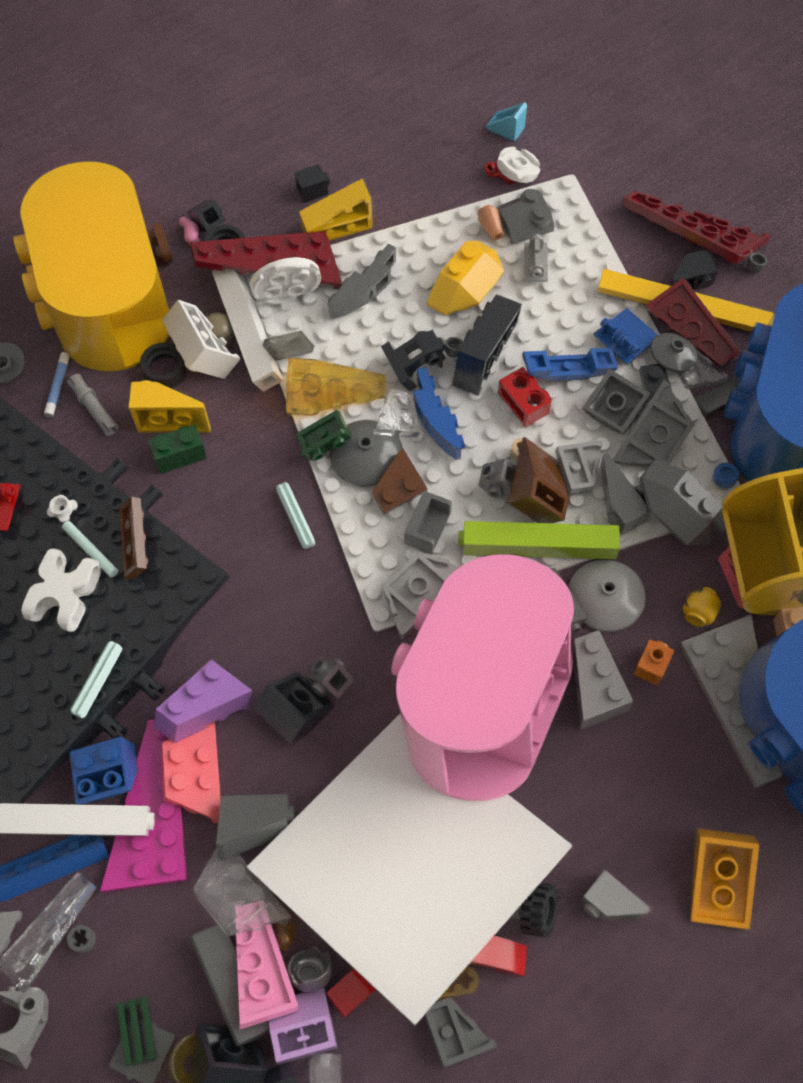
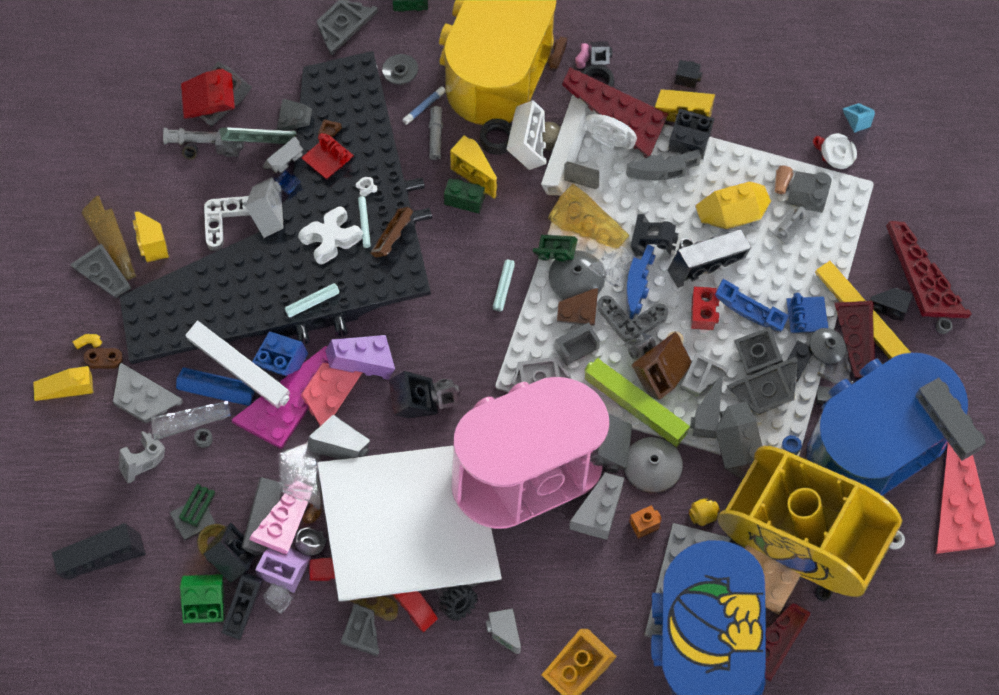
camera: 35 degrees right, 0 degrees up
(365, 233) = (691, 132): none -> black slope
(466, 464) = (631, 325): none -> dark grey beam

